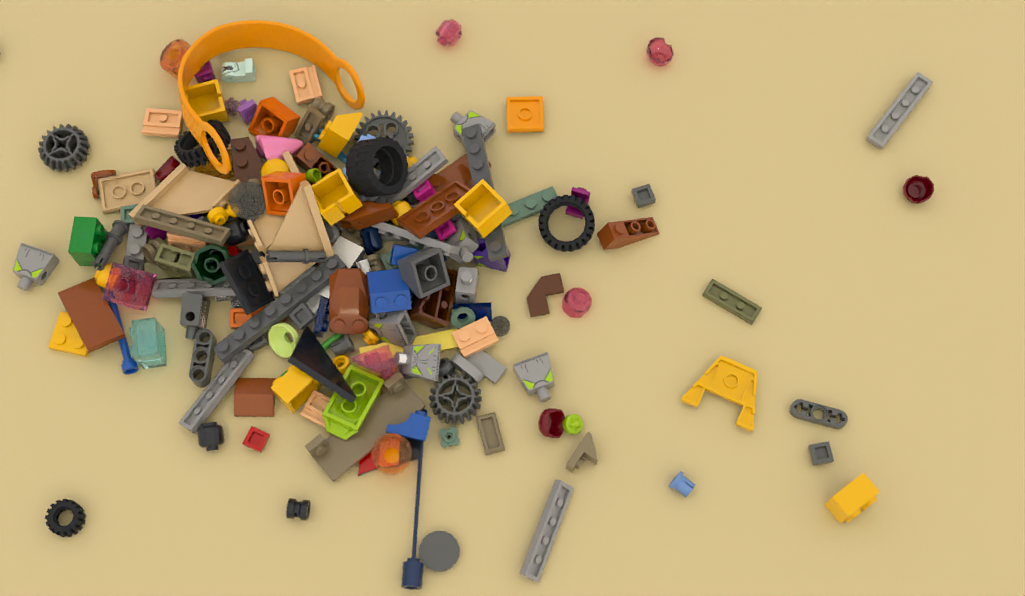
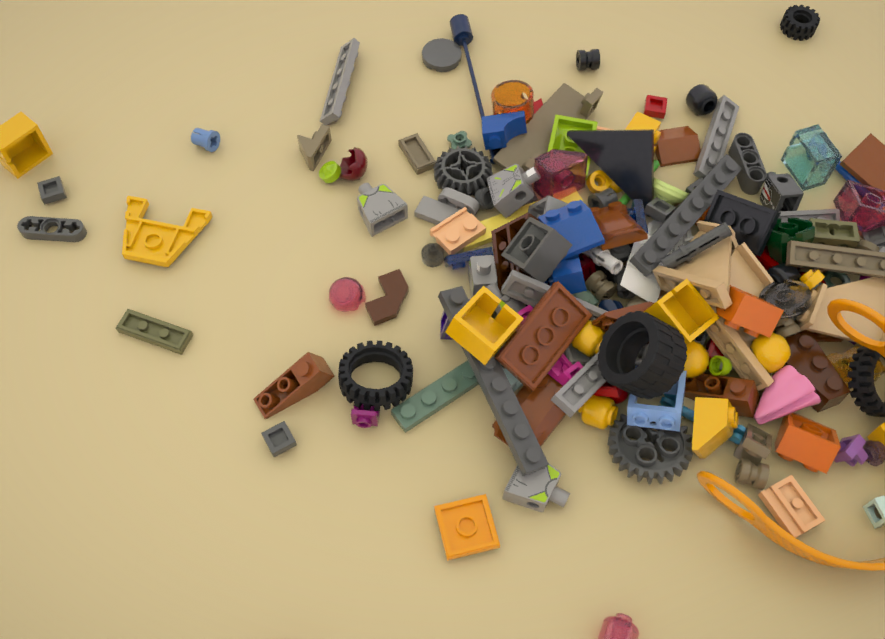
camera: 165 degrees right, 10 degrees down
(459, 323) = (480, 243): sand green piece -> none

